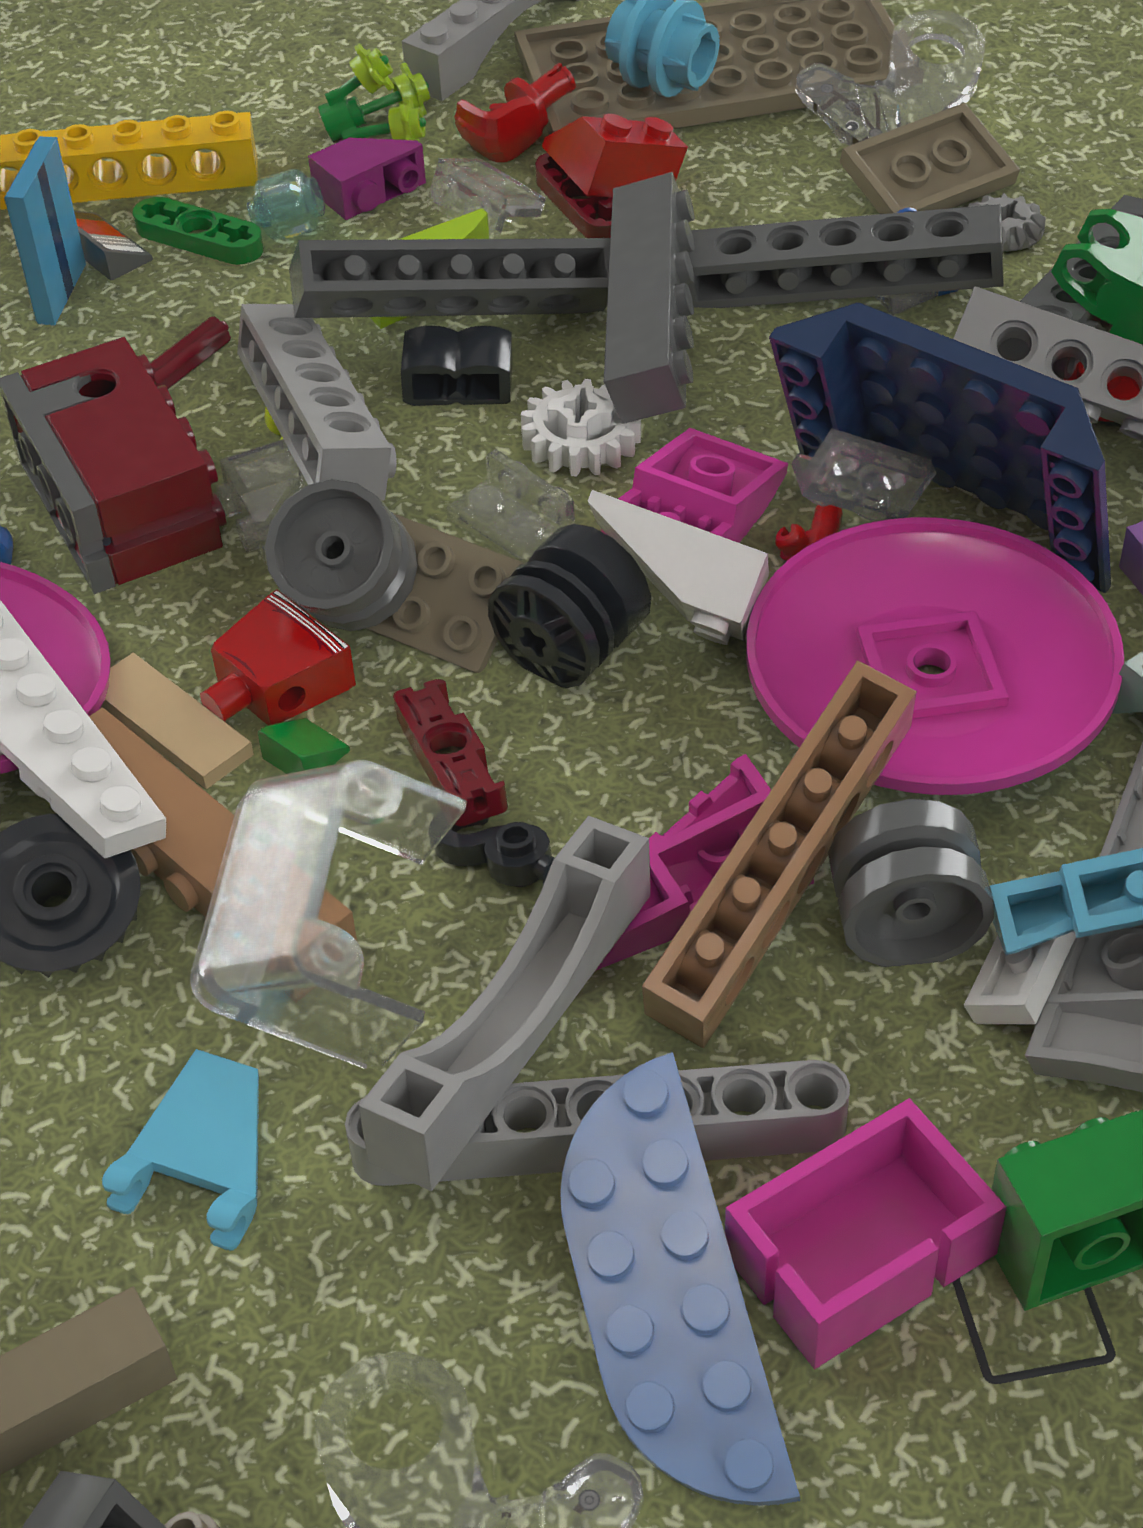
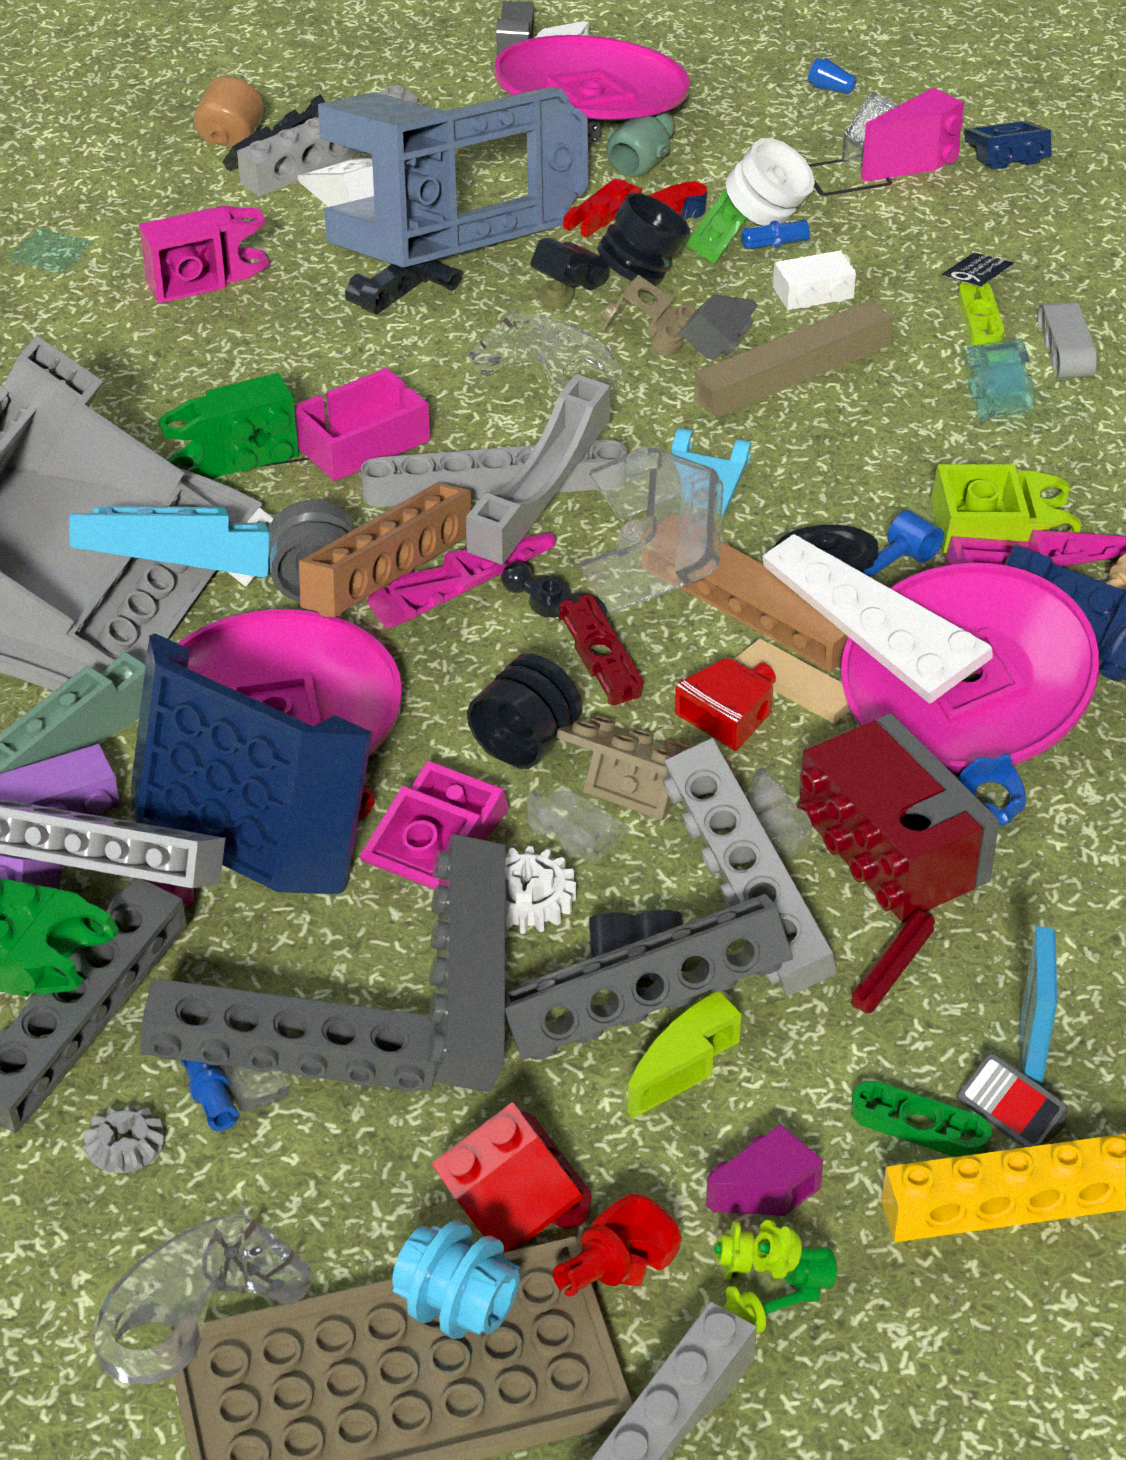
camera: 175 degrees right, 5 degrees down
(286, 204) = (837, 1132): clear light blue head -> none
(299, 746) = (698, 654): green slope -> none
(341, 555) = (688, 714): dark grey wheel -> none
(473, 184) = (635, 1158): clear bracket -> none
(668, 1295) = (461, 407): medium blue plate -> none
(696, 570) = (445, 717): white slope -> none
(930, 163) = (185, 1186): dark tan plate -> none

